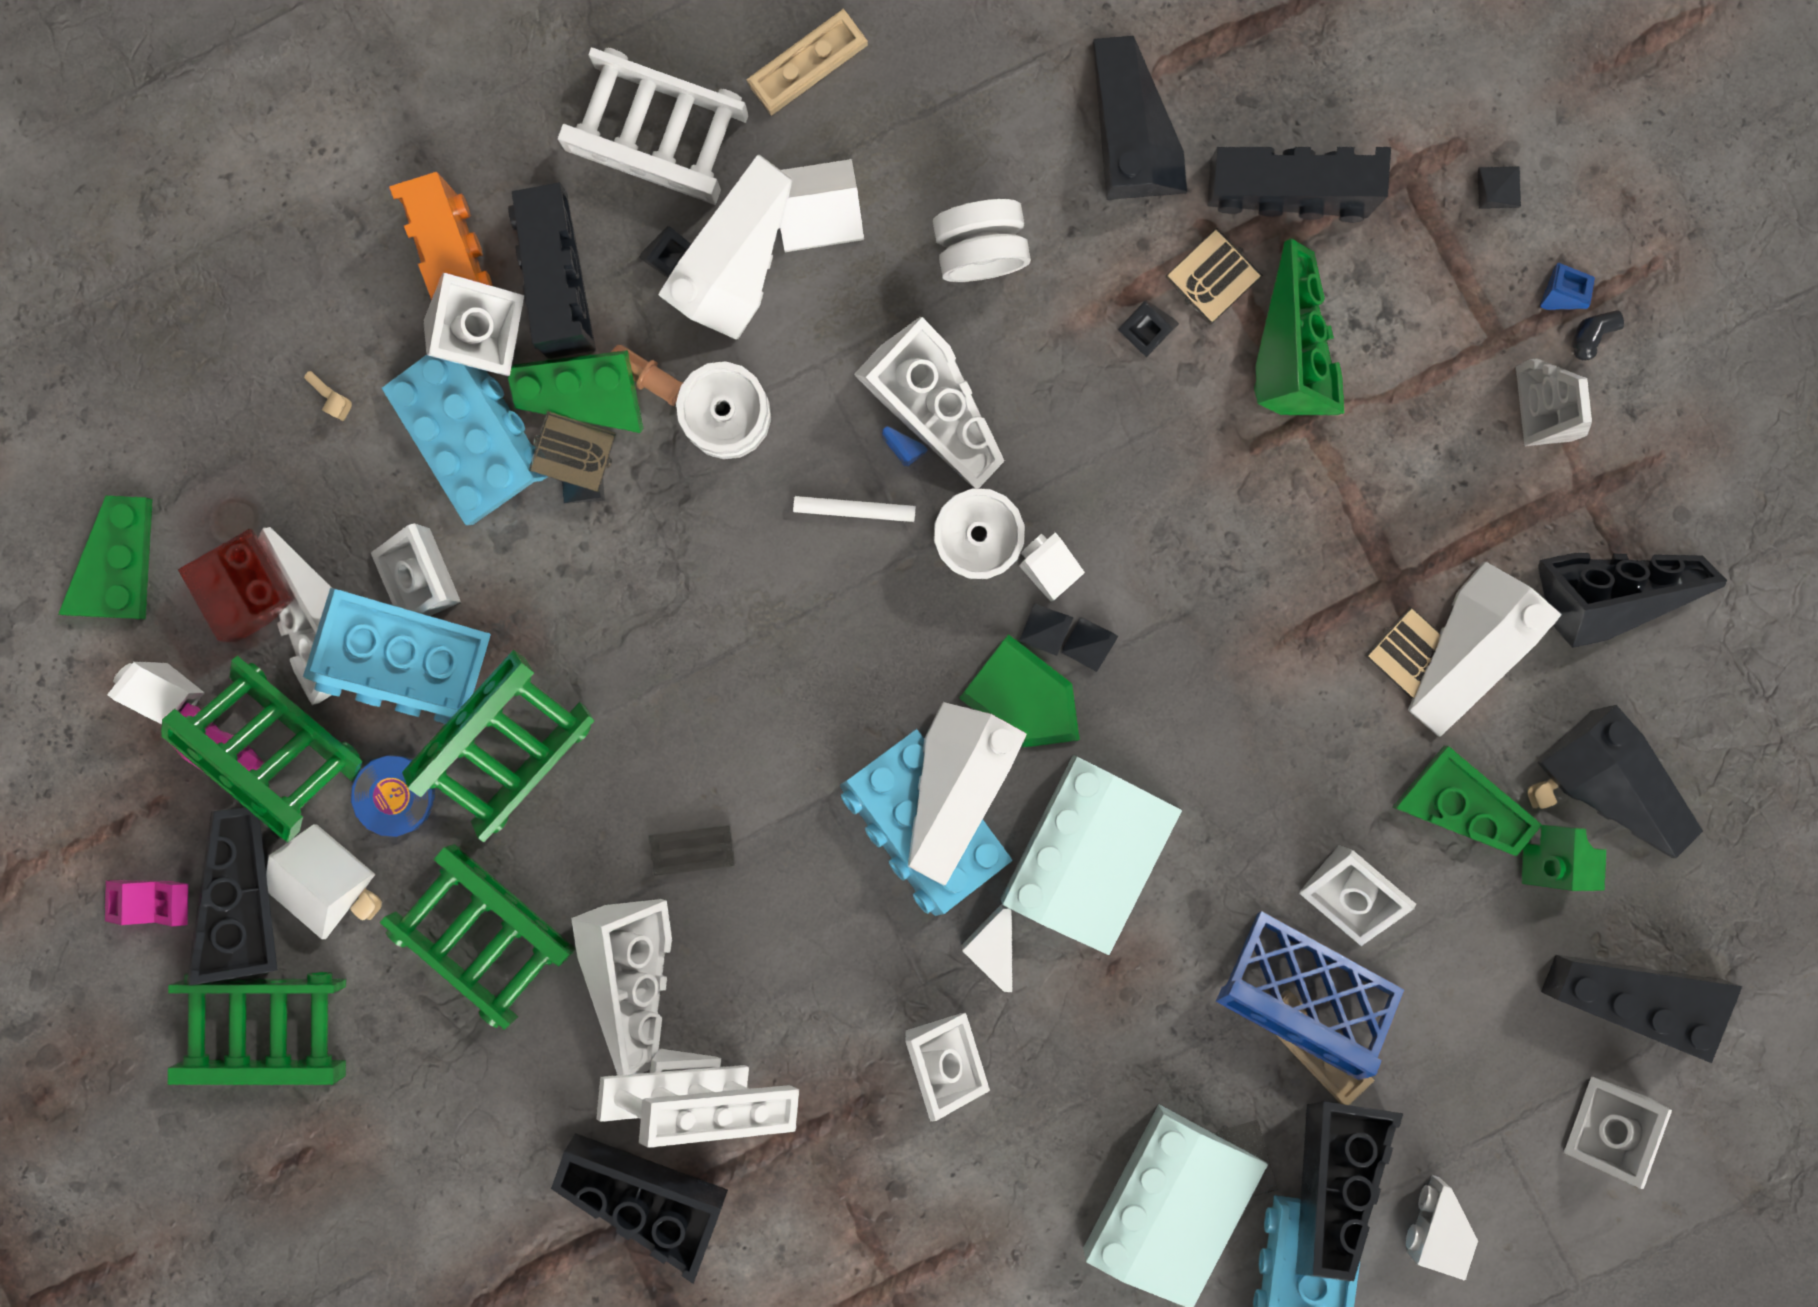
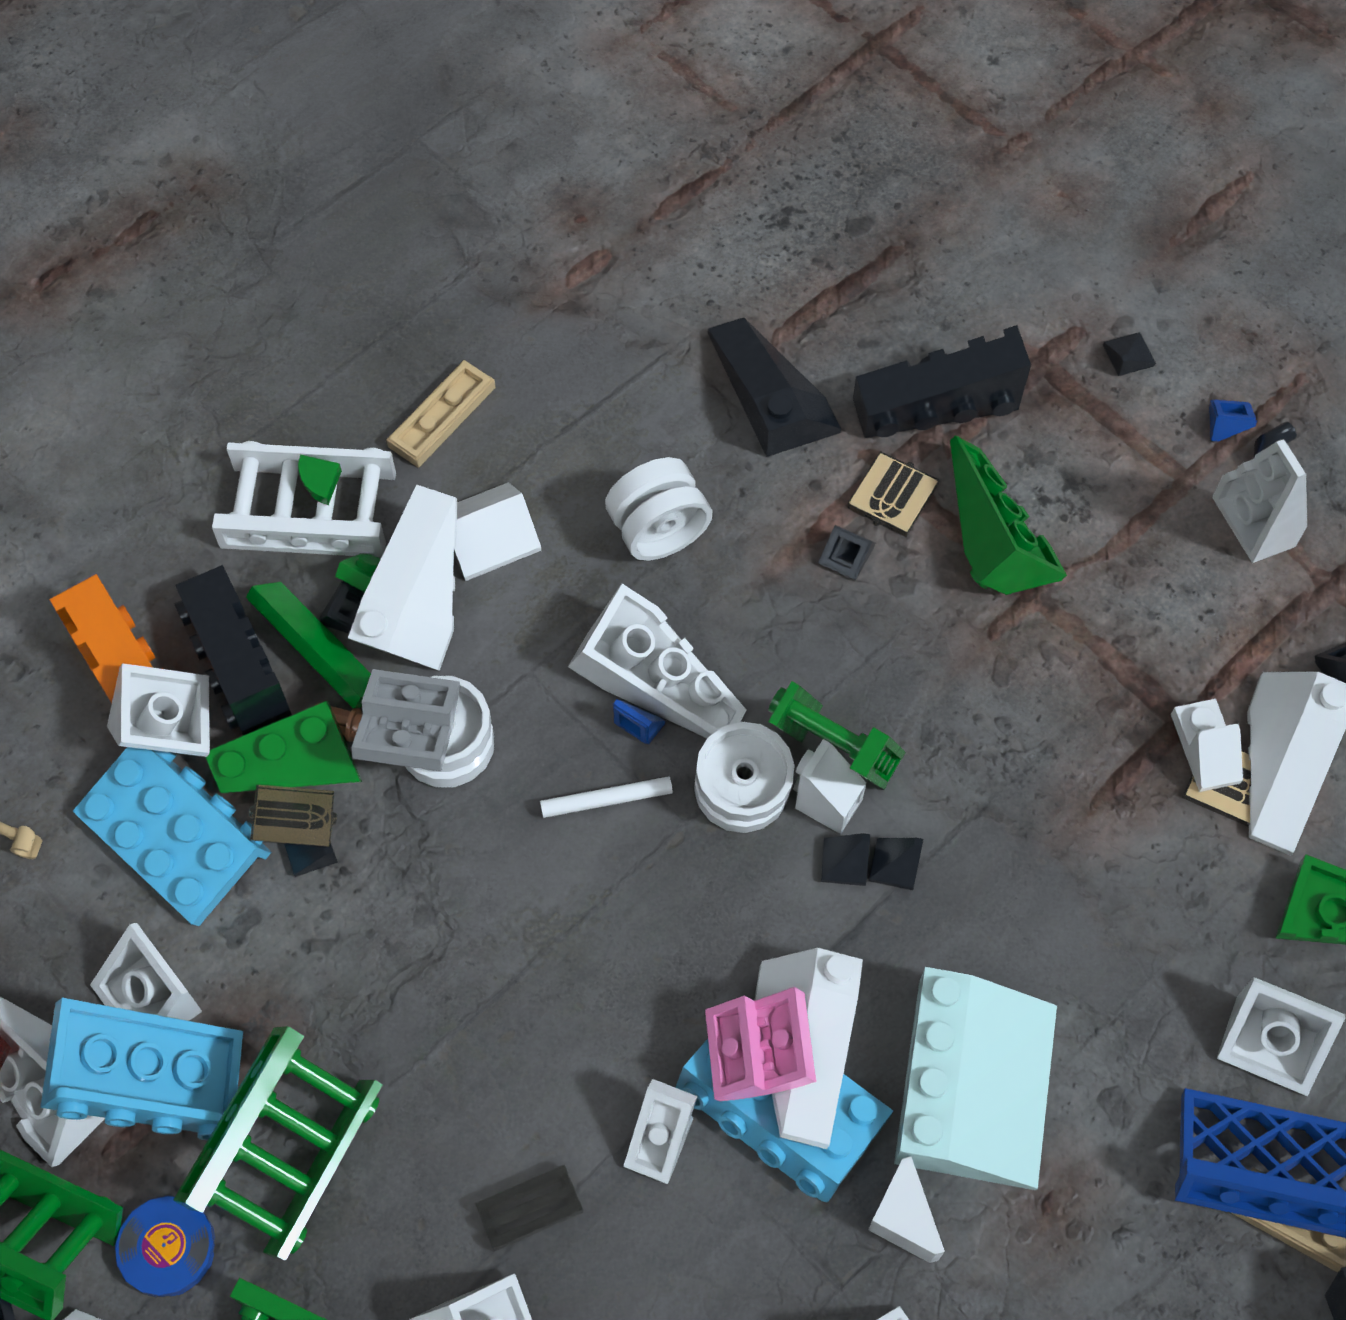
camera: 15 degrees left, 25 degrees down
(630, 284) = (311, 640): none -> green tile
(670, 111) = (319, 477): none -> green tile
(687, 220) = (358, 570): none -> green plate
(689, 401) = (406, 720): none -> light grey slope
(813, 824) = (660, 1131): none -> white slope
(914, 786) = (760, 1045): none -> bright pink slope
(1025, 695) = (849, 926): green tile -> none
(1068, 535) = (874, 754): none -> green fence
(1405, 618) = (1209, 744): none -> white slope

